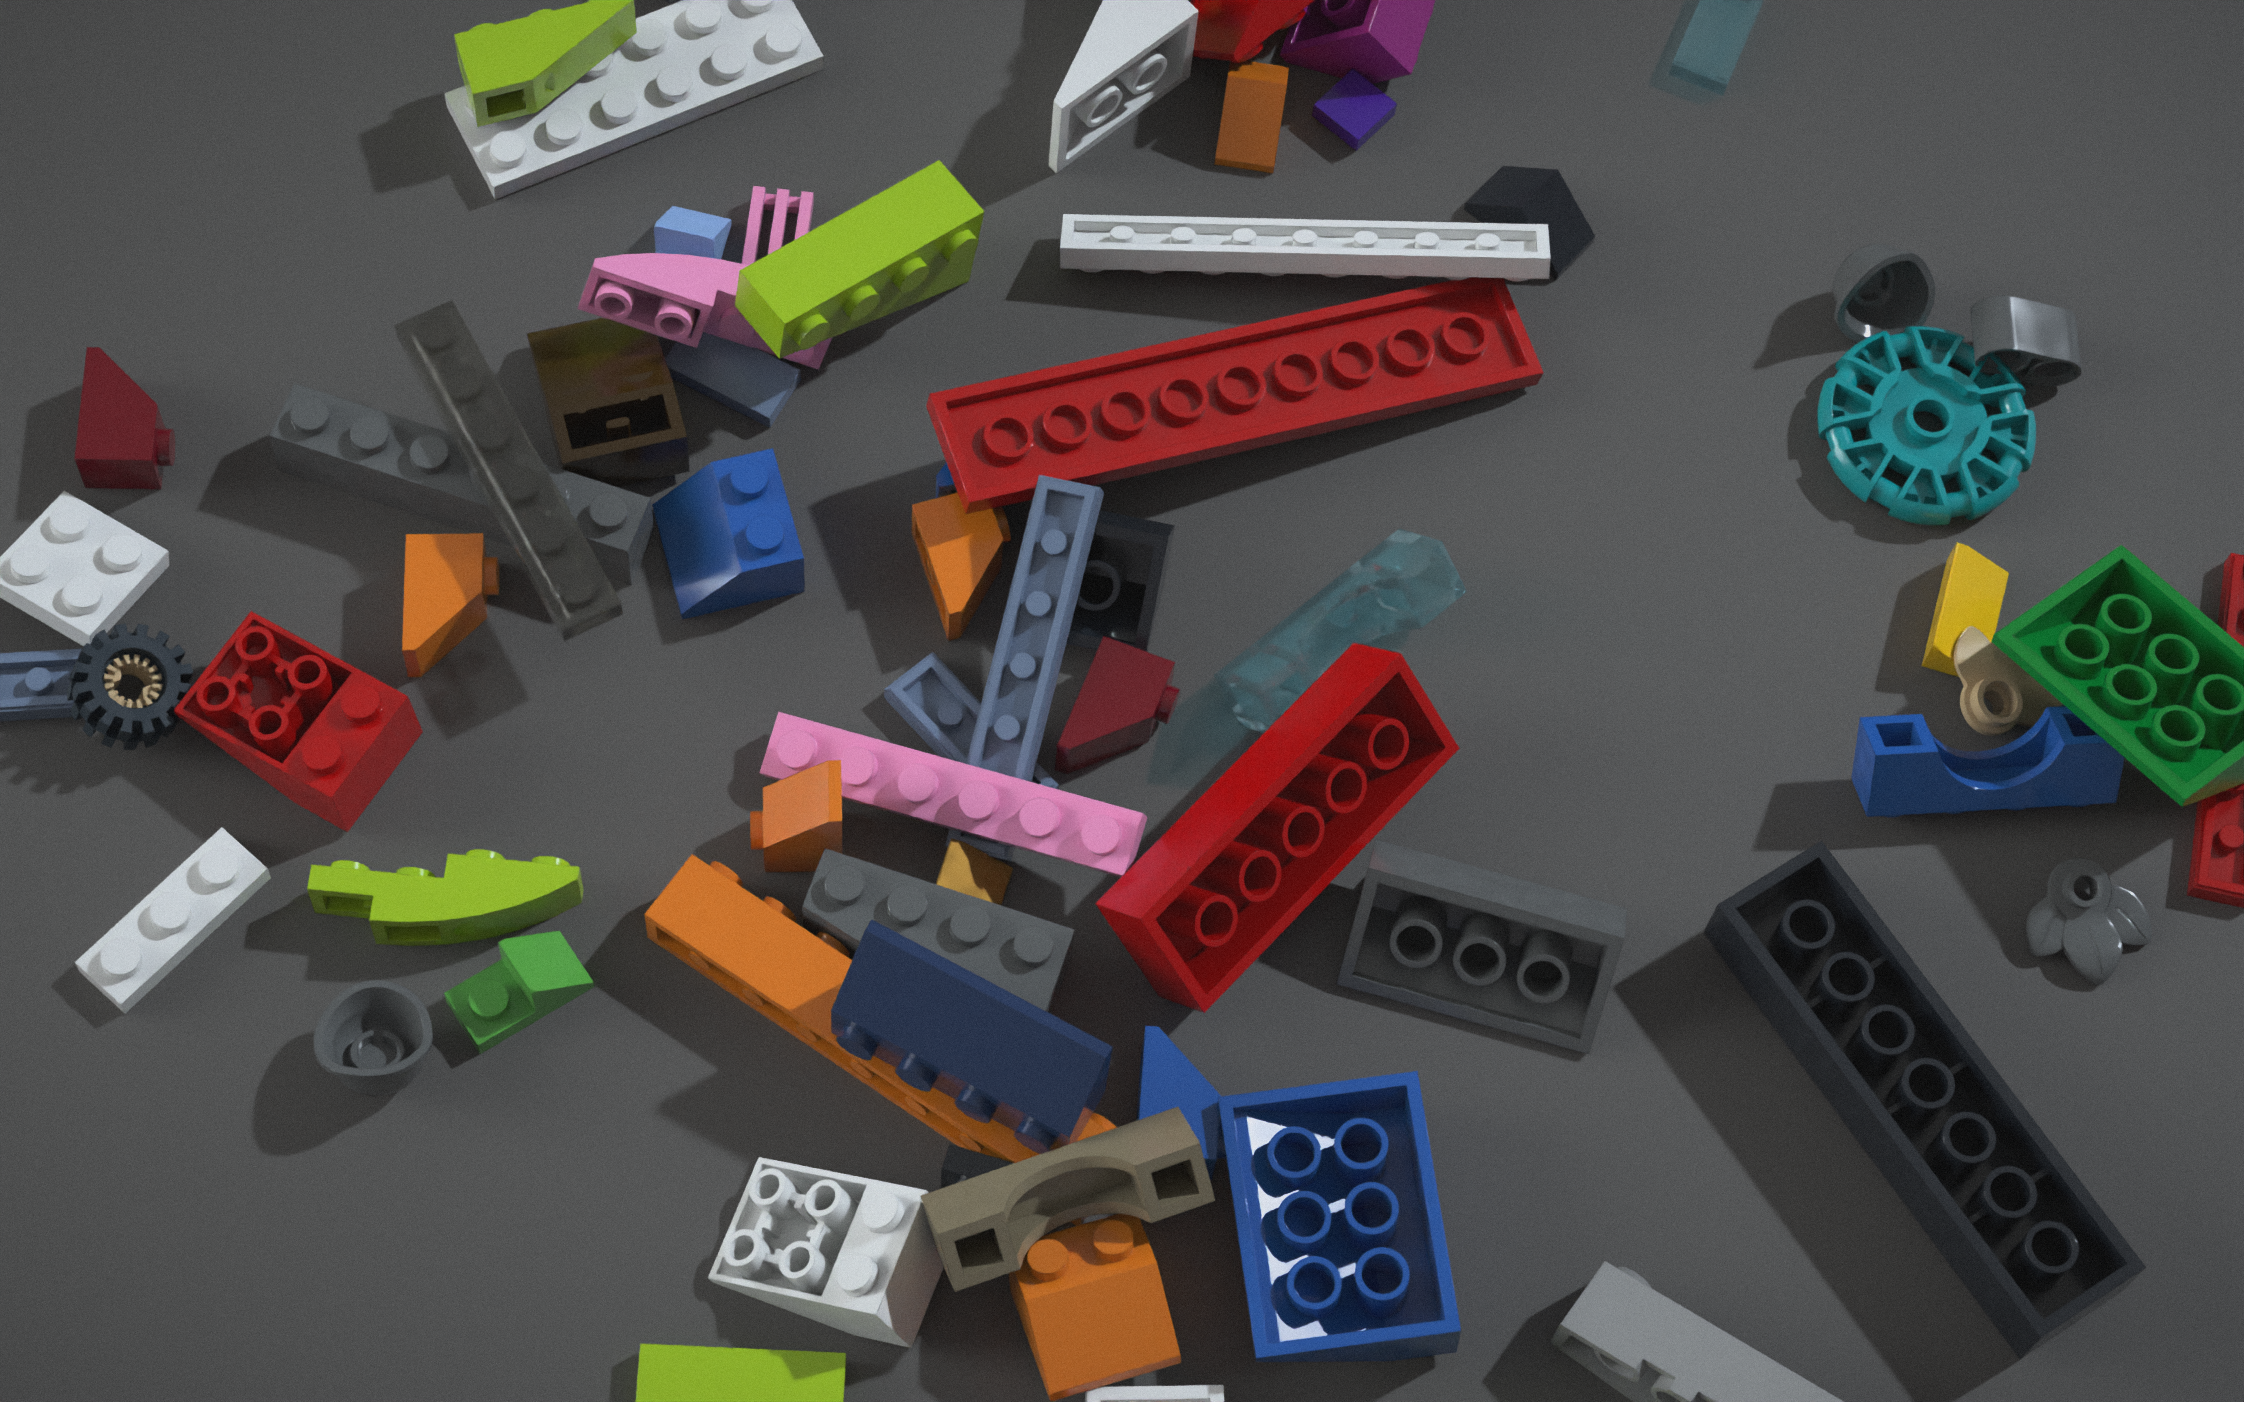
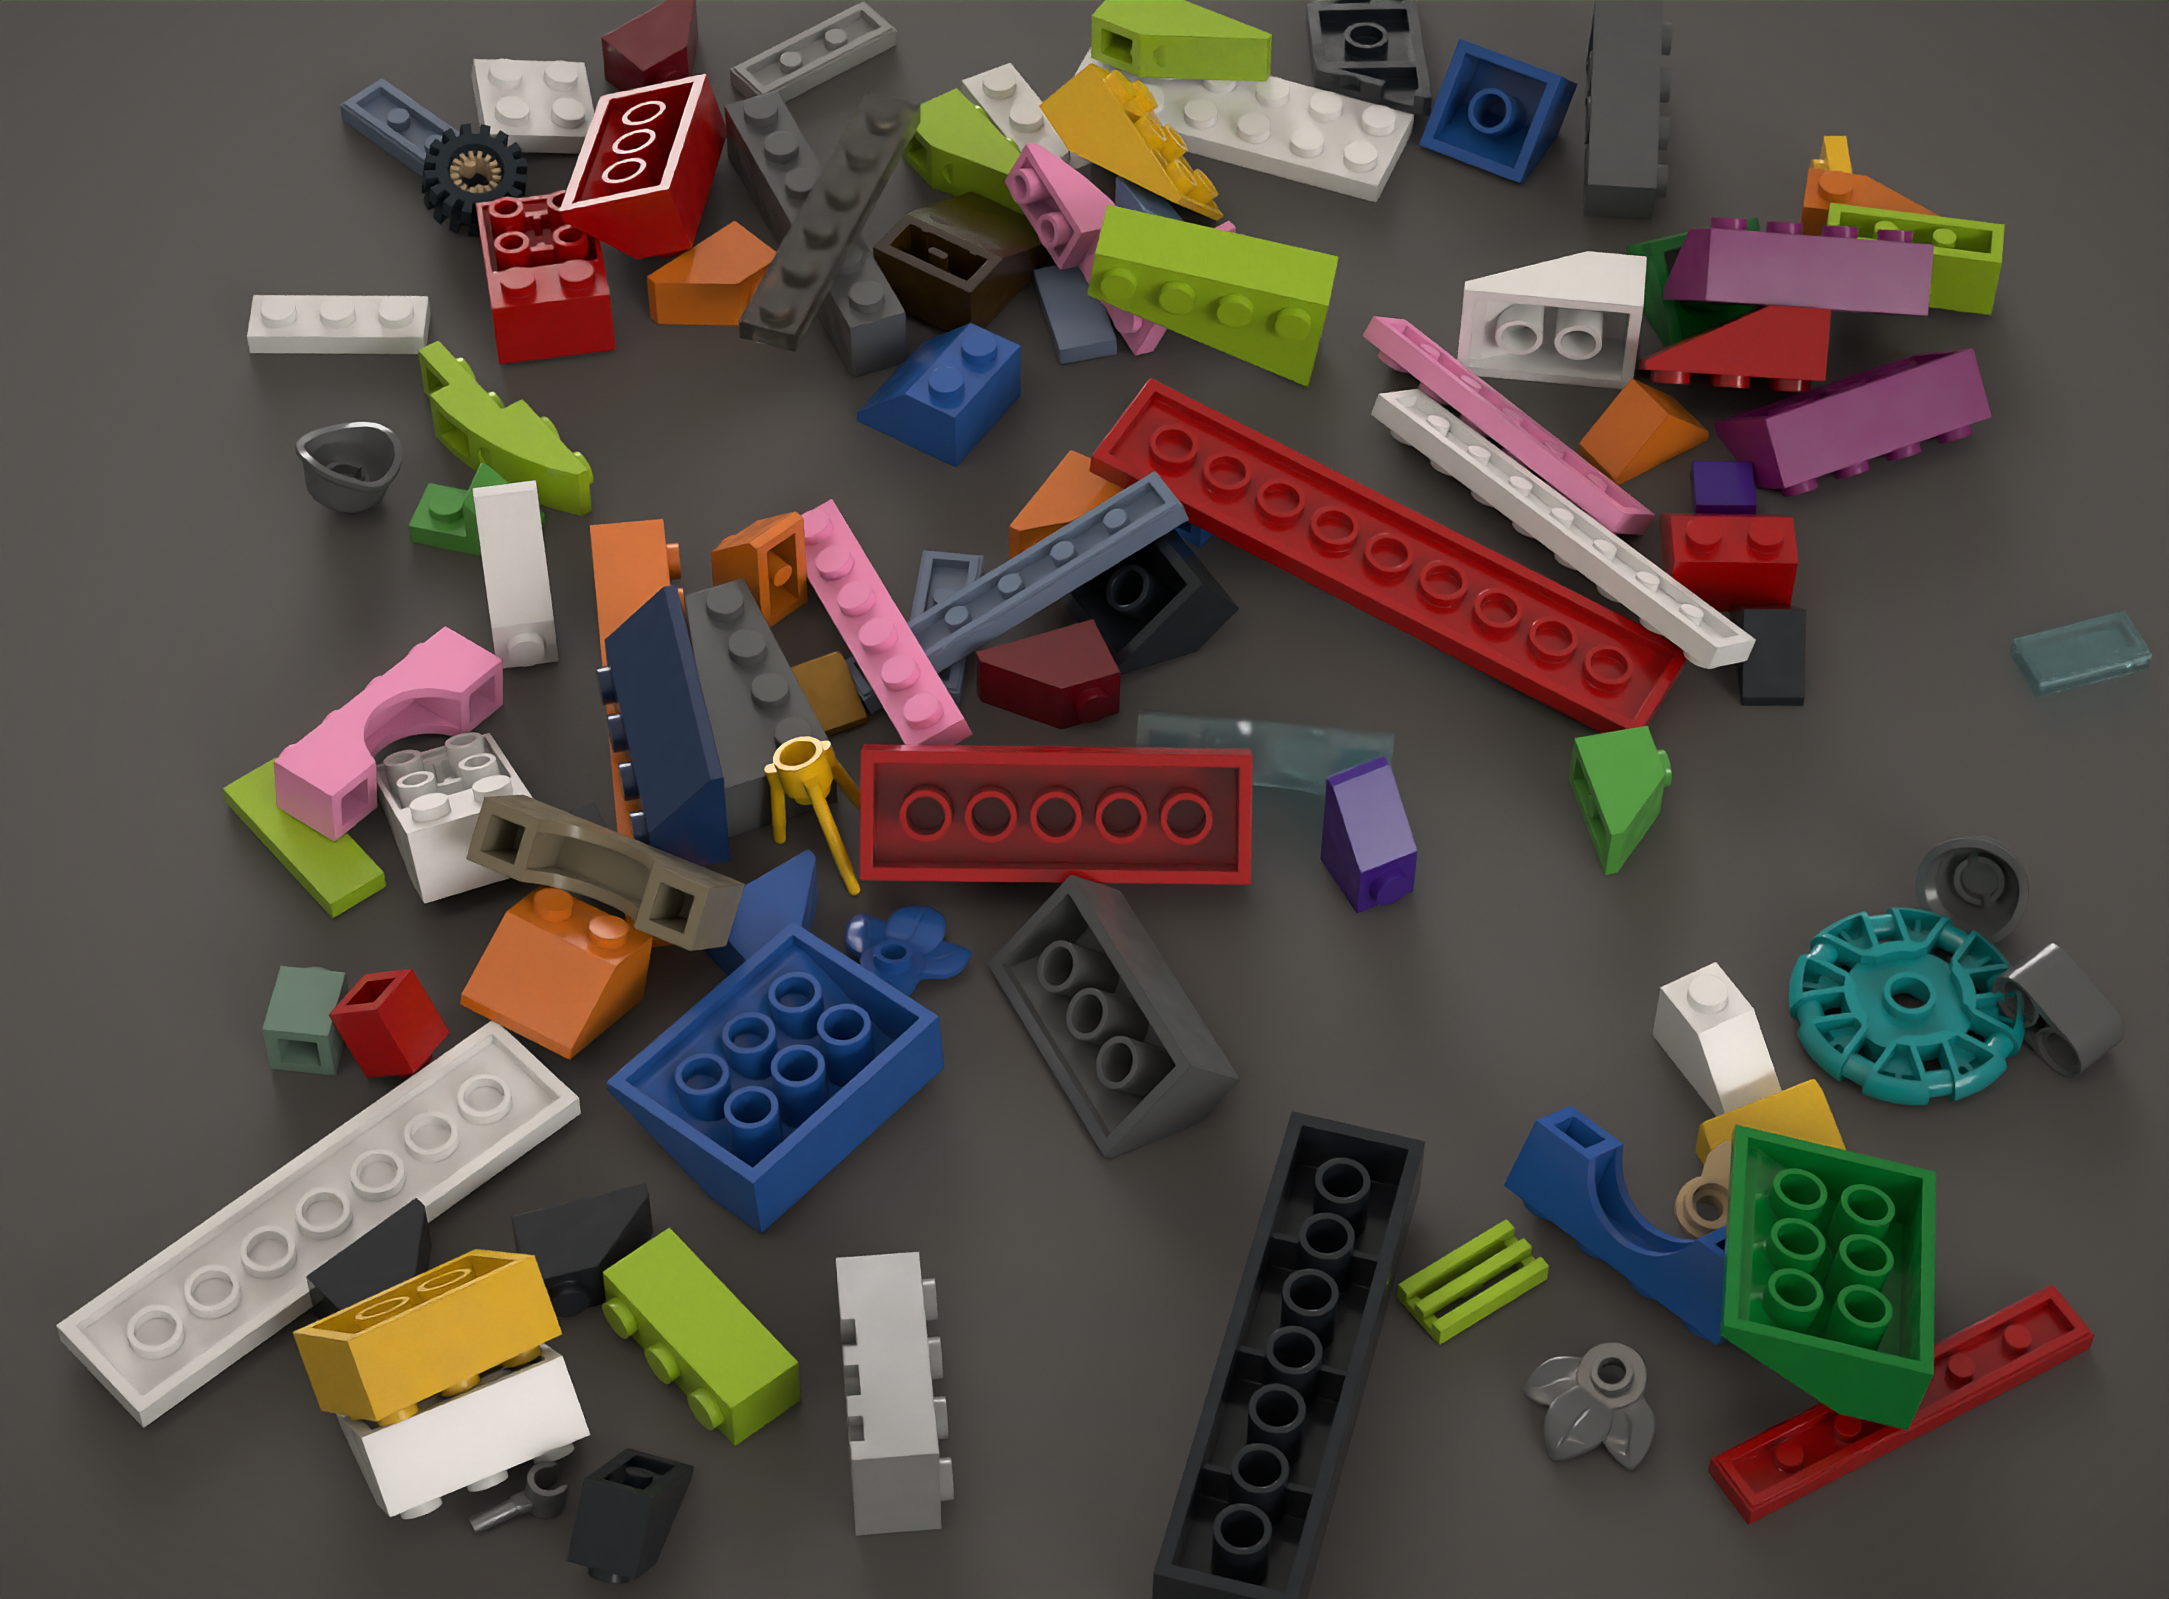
camera: 55 degrees right, 15 degrees down
(237, 316) = (816, 54): none -> light grey tile
(275, 551) = (647, 168): none -> red slope
(492, 236) = (1017, 114): none -> white plate
(500, 298) = (962, 150): none -> lime slope
(626, 190) = (1116, 128): none -> yellow slope
(667, 1020) = (516, 574): none -> white slope
(727, 1312) = (436, 689): none -> bright pink arch
(1092, 973) = (805, 772): none -> yellow plant
(1143, 189) = (1496, 417): none -> bright pink plate
(1270, 1024) = (905, 947): none -> blue plate
(1426, 159) = (1731, 557): none -> red slope
(1491, 635) = (1368, 836): none -> dark purple slope
(1584, 433) = (1618, 789): none -> bright green slope
(1862, 573) = (1715, 1040): none -> white slope
(1920, 858) = (1461, 1260): none -> lime tile

